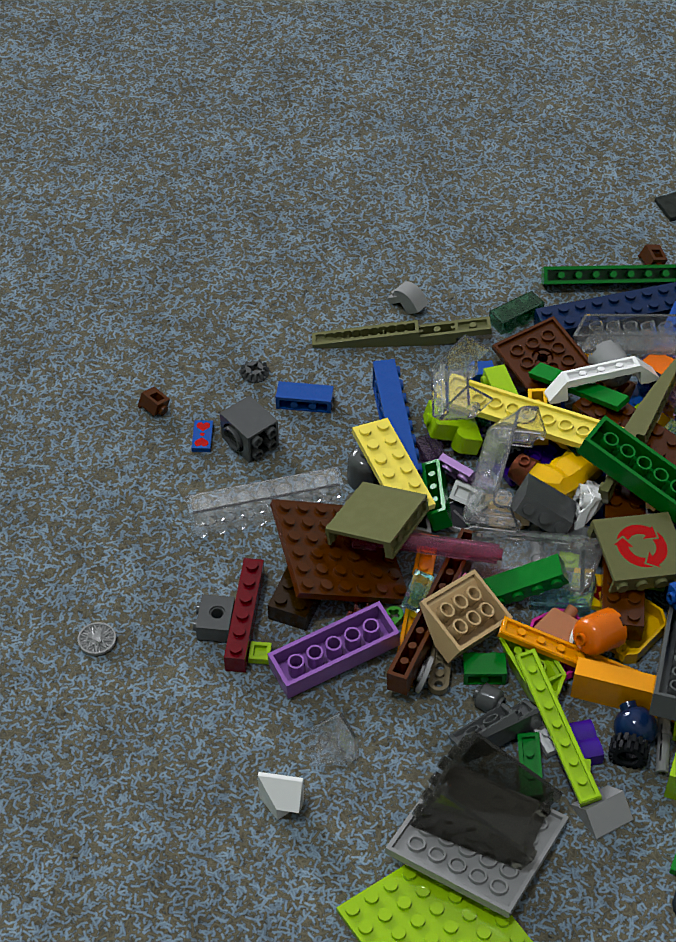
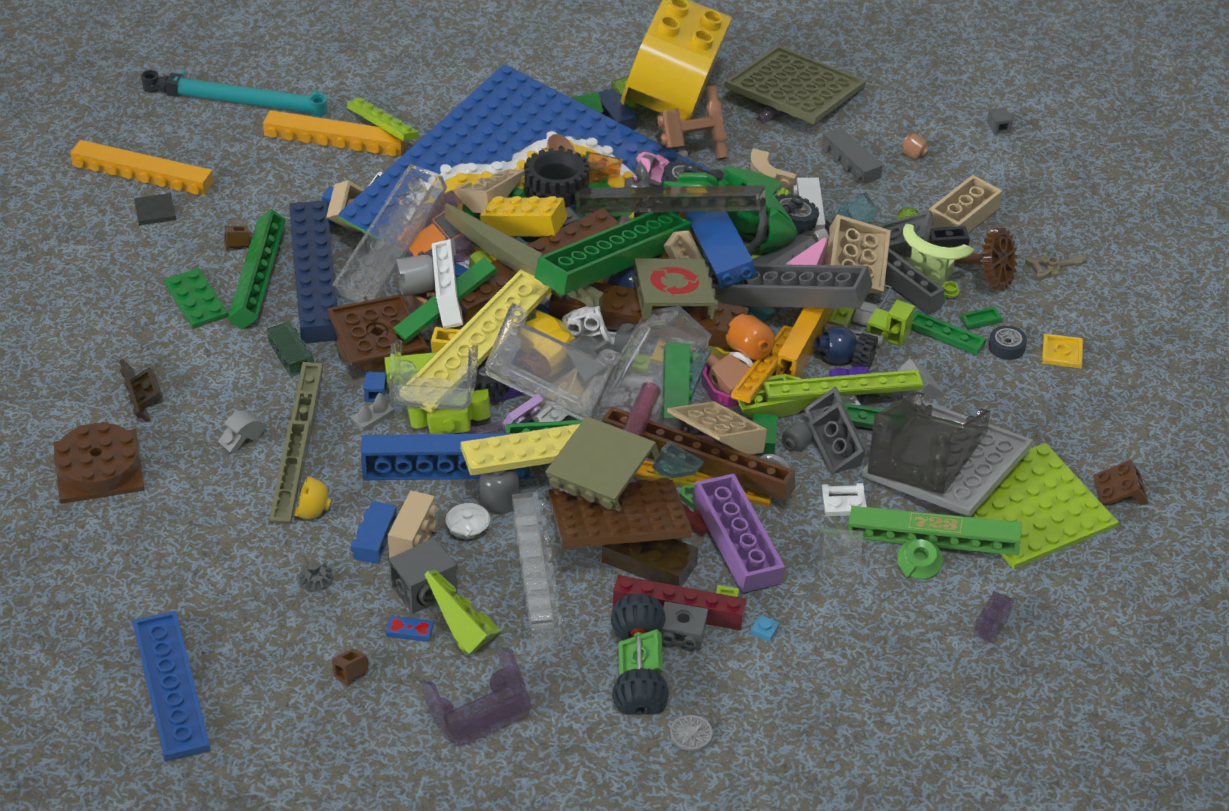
camera: 85 degrees left, 5 degrees down
(107, 490) = (484, 715): none -> clear purple windscreen
(130, 305) = (171, 686): none -> blue plate
(136, 596) = (640, 686): none -> black plate
(203, 461) = (467, 626): none -> lime wedge
(227, 687) = (764, 628): none -> dark azure plate
(252, 883) = (993, 617): none -> clear purple brick
(281, 793) = (906, 585): white slope -> none
(303, 415) = (413, 523): none -> tan brick
(328, 454) = (467, 520): none -> white piece
(331, 815) = (919, 559): none -> bright green piece
(333, 350) = (312, 499): none -> yellow cylinder
(357, 226) = (97, 462): none -> reddish brown piece
(366, 827) = (940, 529): none -> bright green brick
(402, 749) = (842, 504): none -> white plate
(444, 233) = (142, 387): none -> dark brown bracket
(570, 248) = (195, 298): none -> green plate

